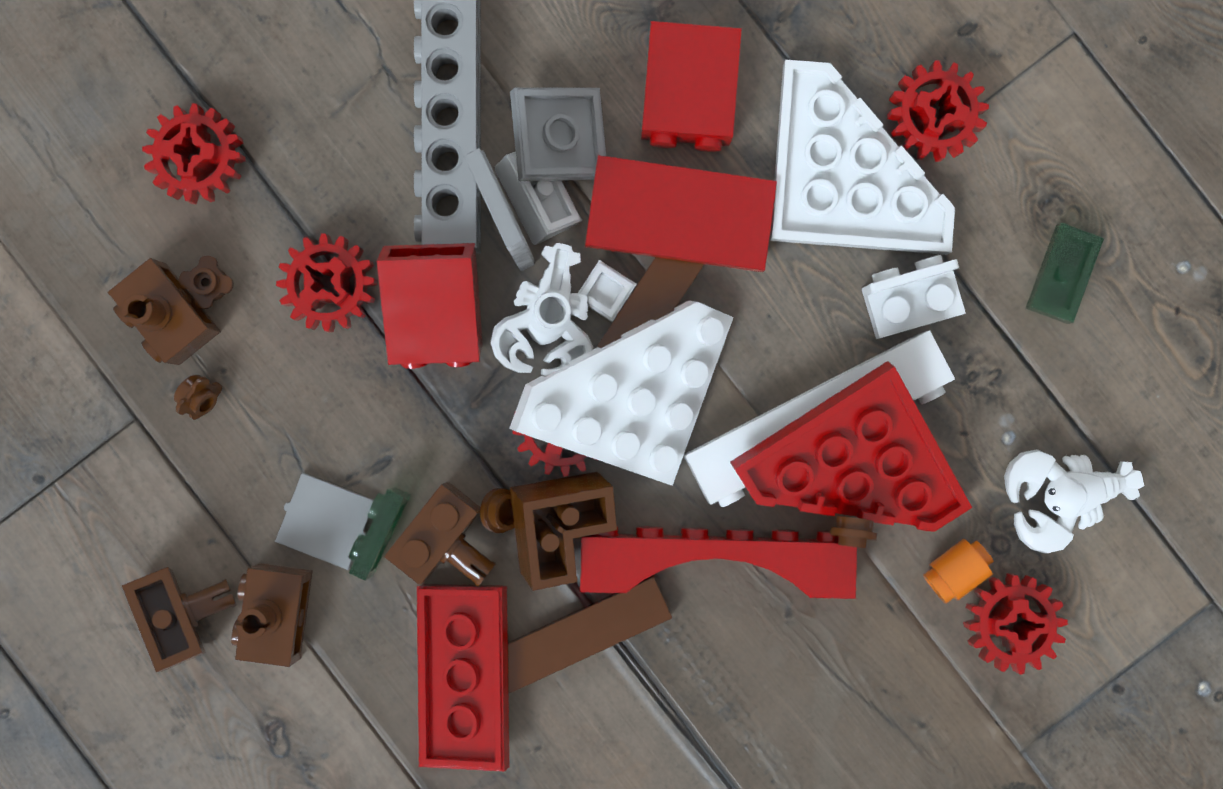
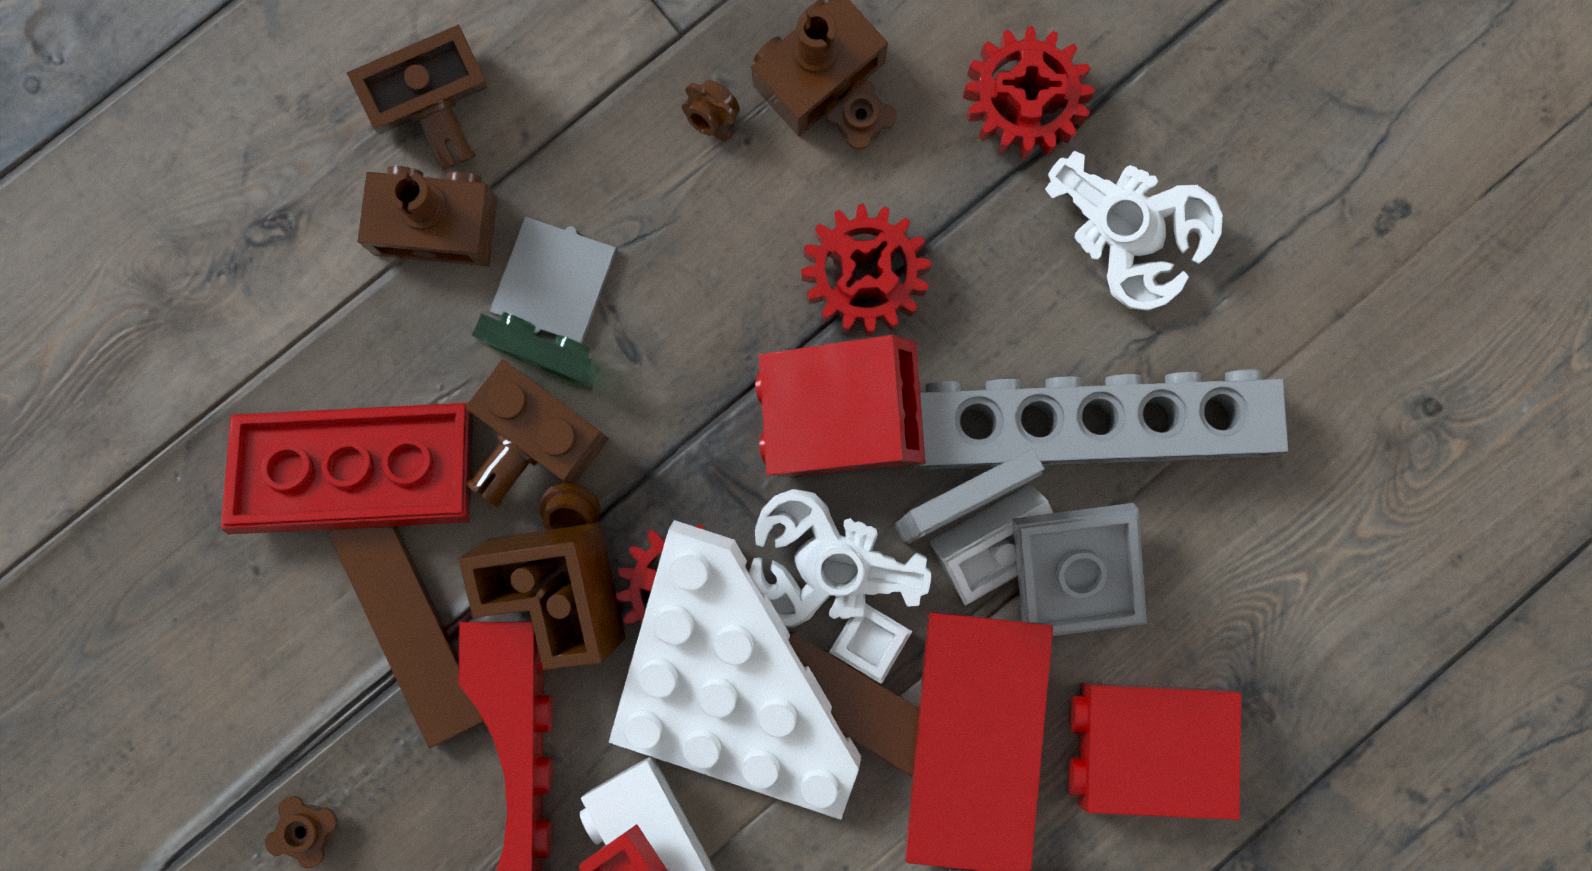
camera: 90 degrees right, 5 degrees down
(301, 77) = (1137, 227): none -> white animal
(725, 700) = (318, 825): none -> reddish brown plate

